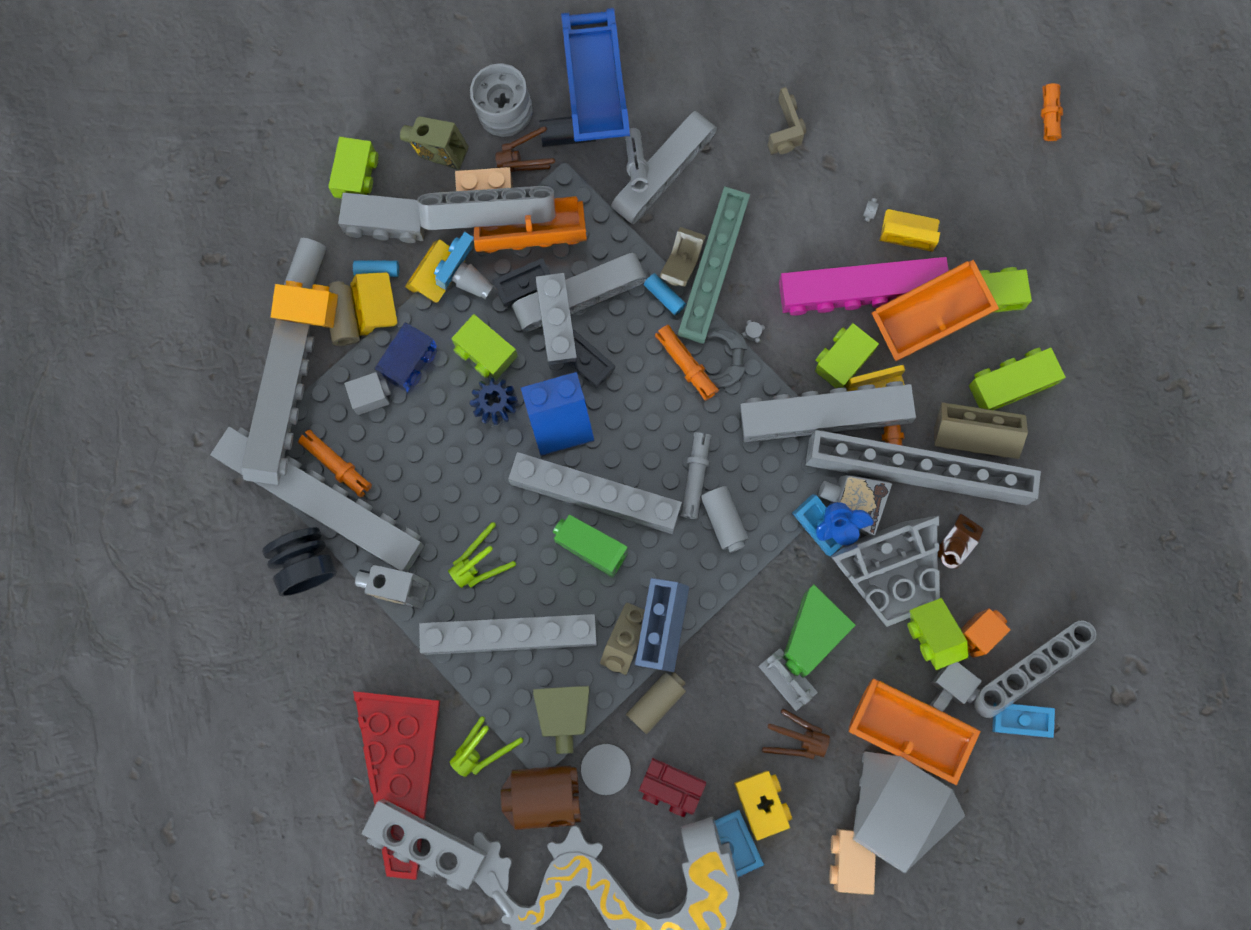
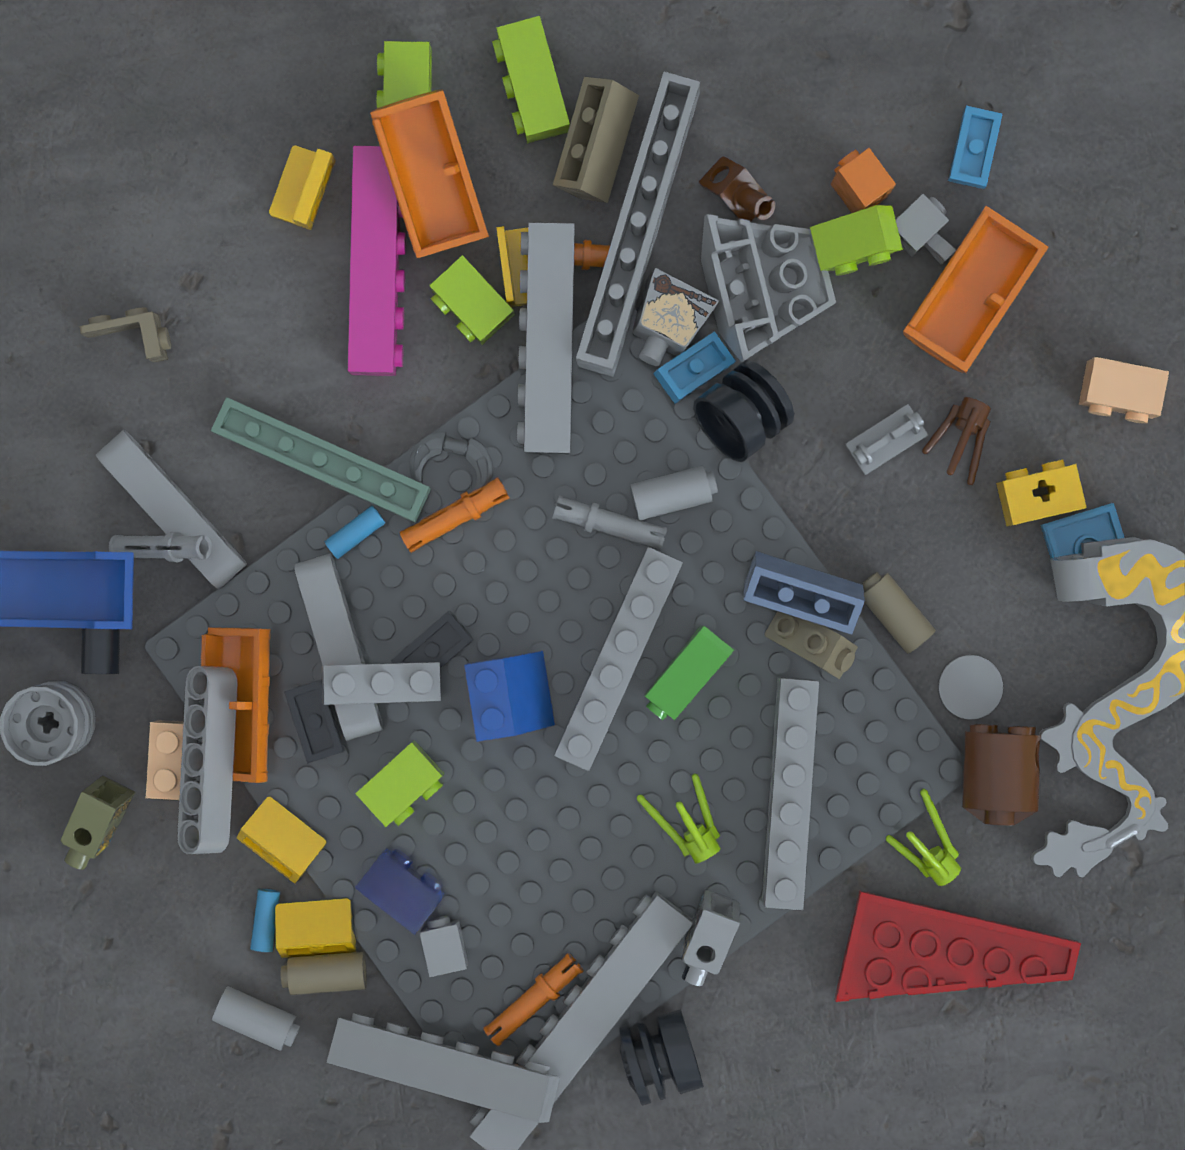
camera: 85 degrees left, 10 degrees up
(304, 305) = (313, 1022): light orange brick -> none
(353, 167) = (119, 938): lime brick -> none
(379, 835) = (1021, 934): light grey brick -> none
(380, 217) = (194, 907): light grey brick -> none
(459, 251) = (261, 803): dark azure plate -> none
(472, 281) = (304, 790): light grey cone -> none
(491, 392) = (488, 777): dark blue gear -> none
(512, 159) = (135, 720): reddish brown plant -> none
(562, 714) = (899, 734): olive torso -> none
(672, 787) = (1005, 606): dark red brick -> none
(683, 257) = (308, 501): dark tan bracket -> none
(753, 331) = (418, 419): light grey piece -> none
(794, 563) = (744, 410): none -> black wheel
(815, 632) = (836, 397): bright green slope -> none
(842, 524) = (701, 340): blue plate -> none
(870, 209) = (267, 235): light grey piece -> none
(902, 810) = (1070, 320): light grey wedge -> none
(1027, 679) = (909, 105): light grey beam -> none

